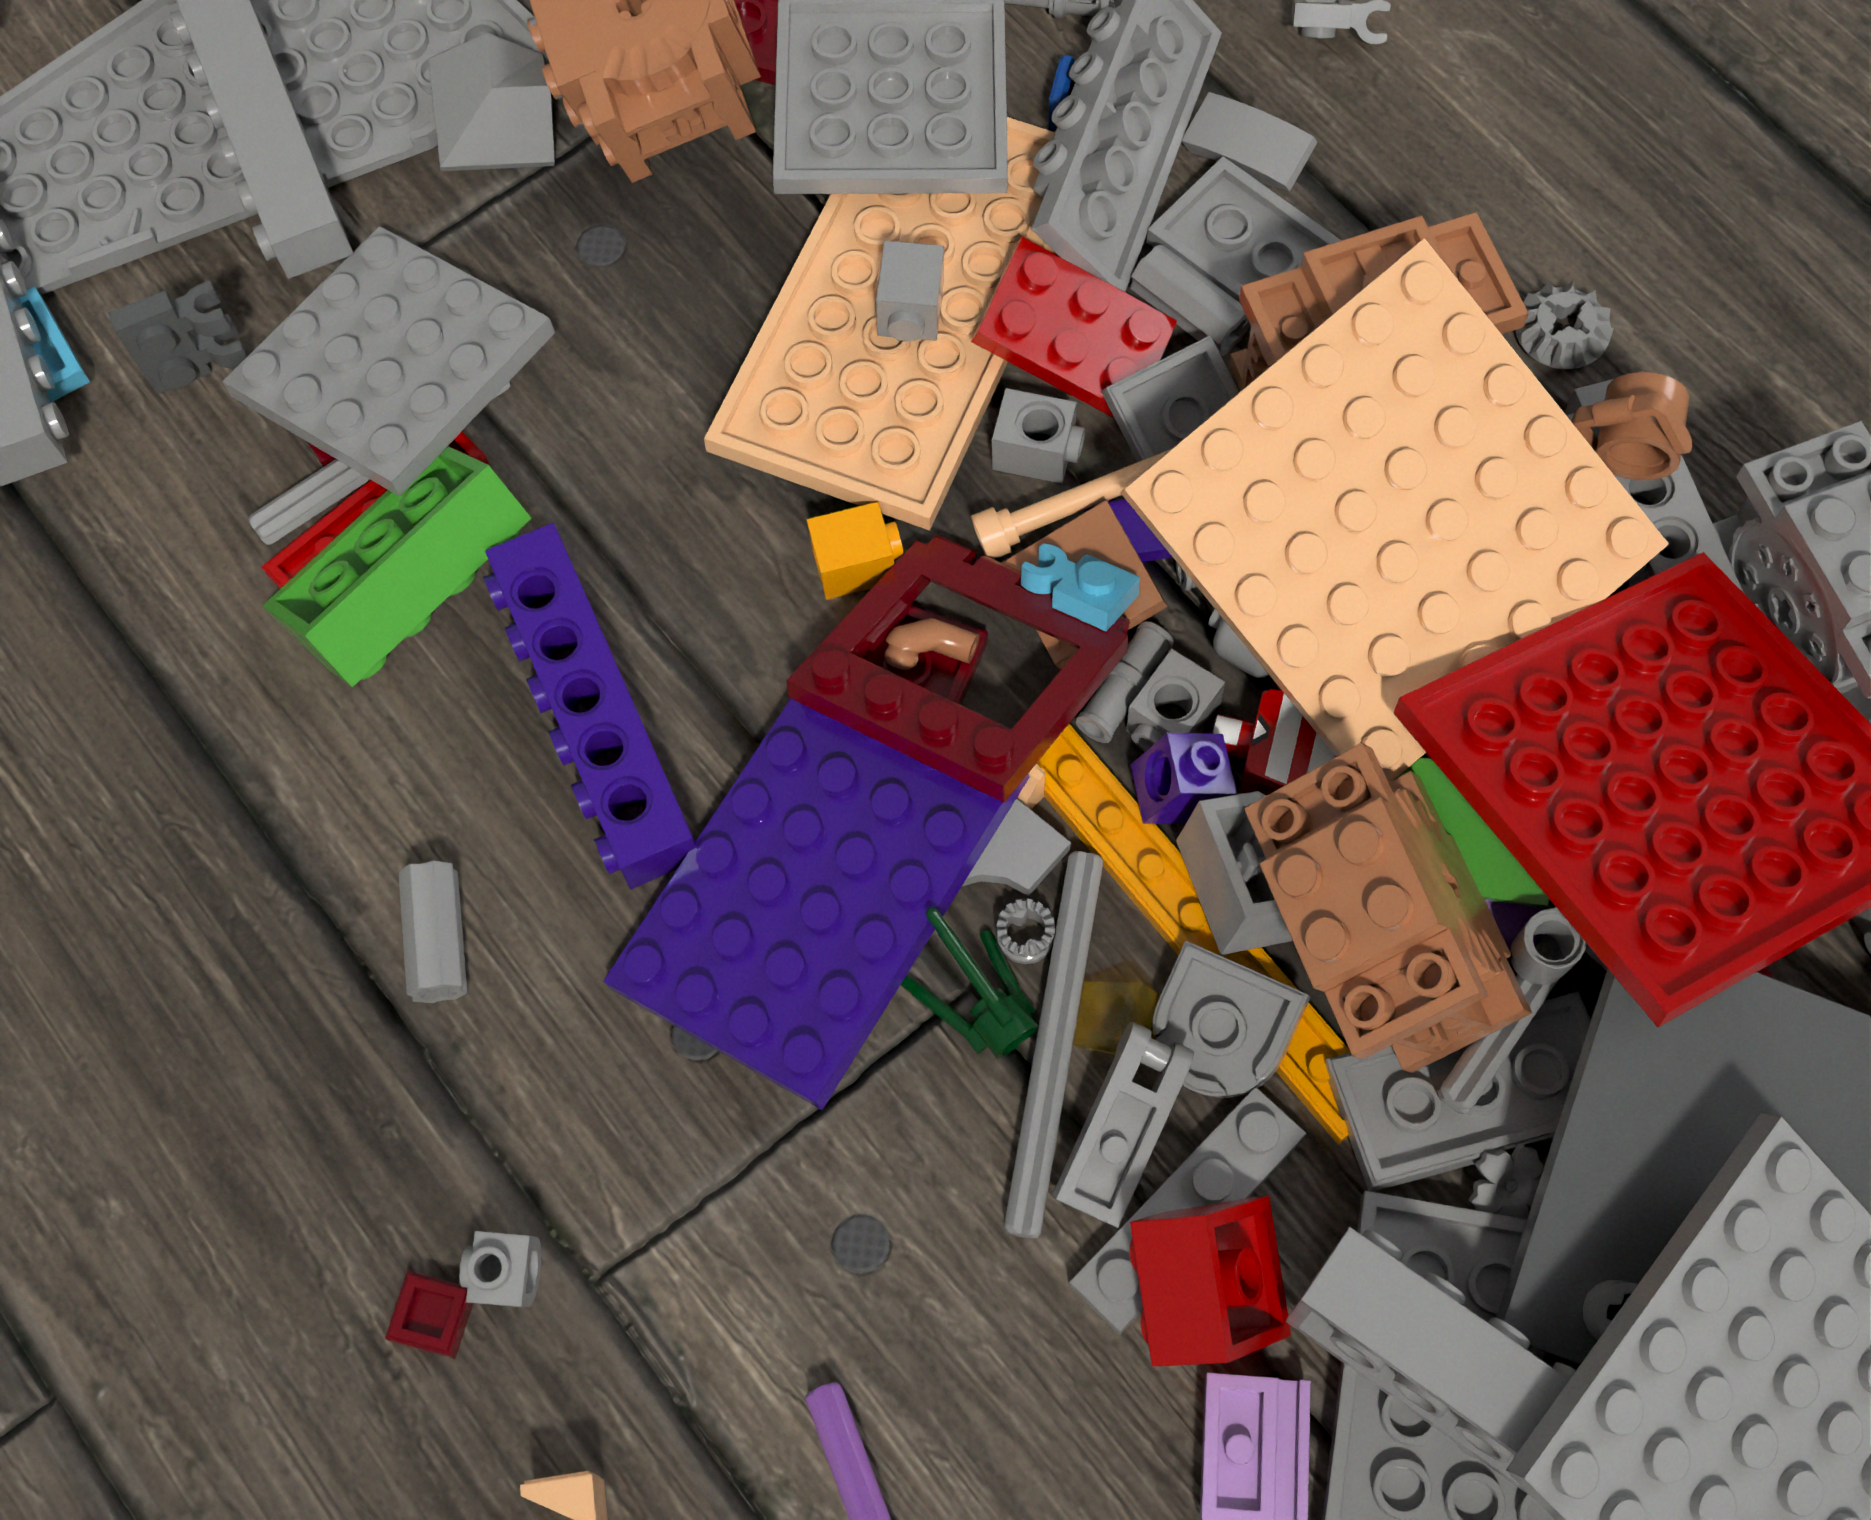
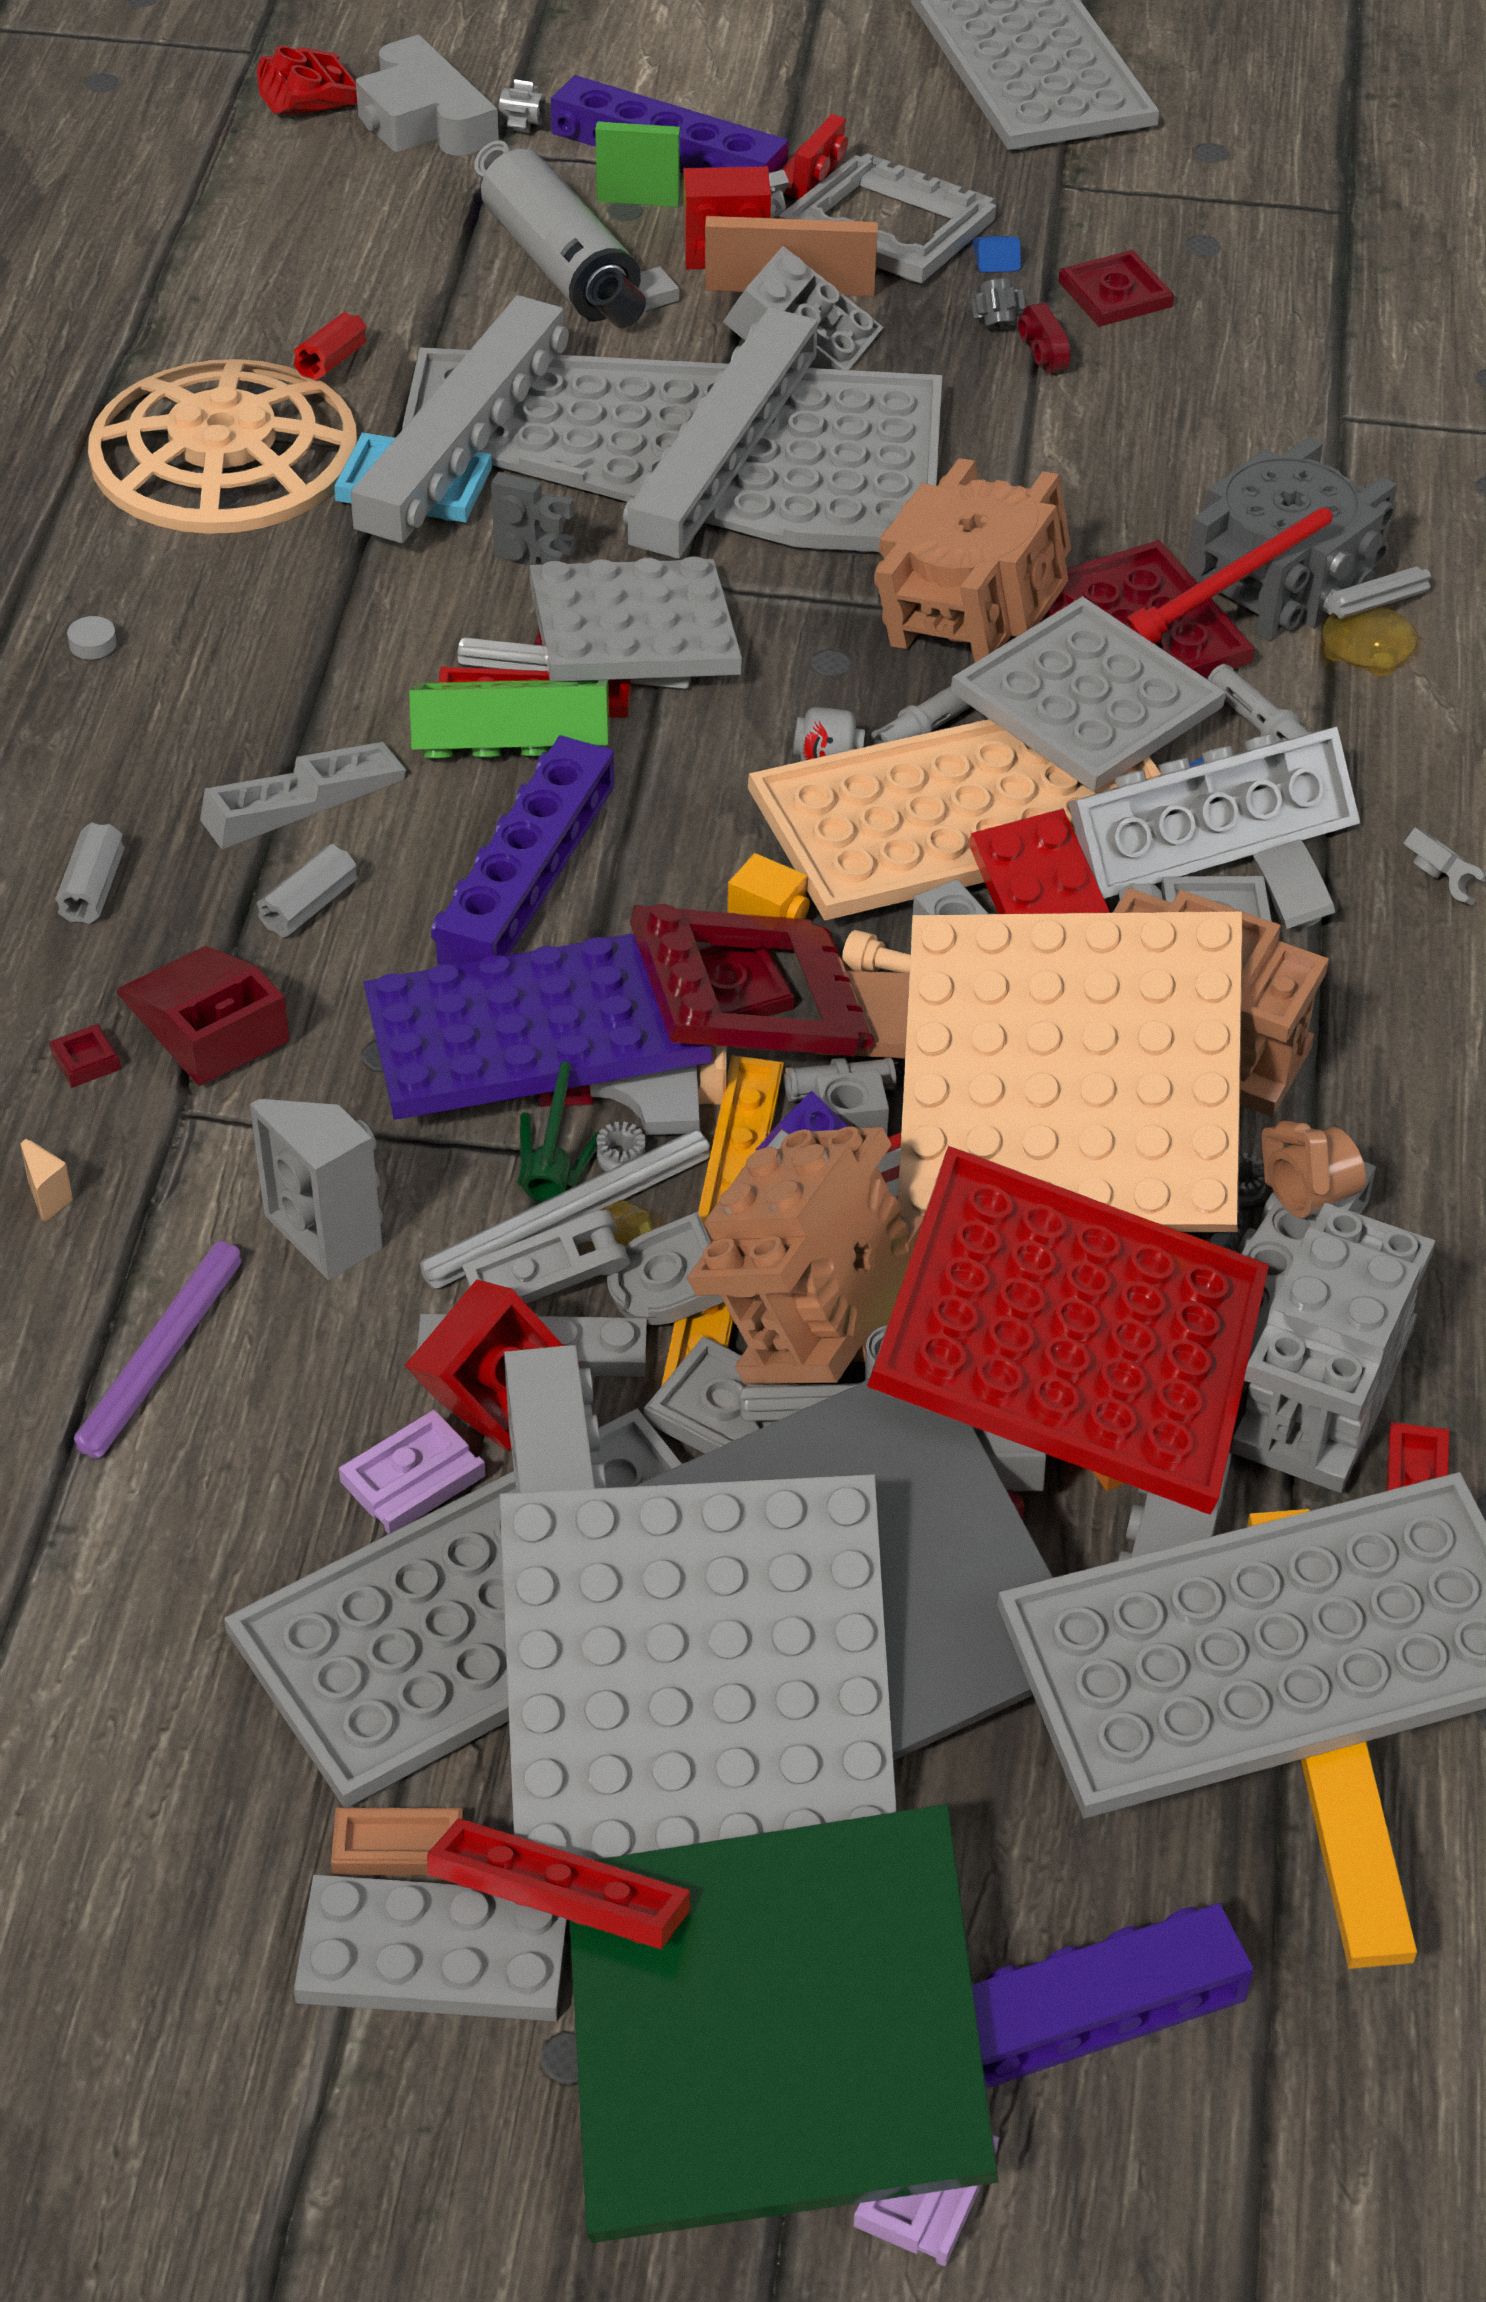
camera: 40 degrees right, 20 degrees down
(198, 1113) = (90, 873): none -> light grey axle
(294, 810) = (318, 783): none -> light grey slope
(491, 106) = (843, 543): light grey slope -> none
(494, 1157) = (209, 1011): none -> dark red slope
(501, 1269) = (144, 1055): light grey plate -> none
(713, 336) = (826, 733): none -> light grey head
(761, 247) = (921, 718): none -> light grey pin
(868, 1260) = (319, 1181): none -> light grey slope
(910, 291) = (960, 786): light grey brick -> none
(925, 636) = (754, 964): nougat arm -> none
(1084, 590) = (866, 1001): medium azure plate -> none
(1571, 346) = (1399, 1129): light grey gear -> none

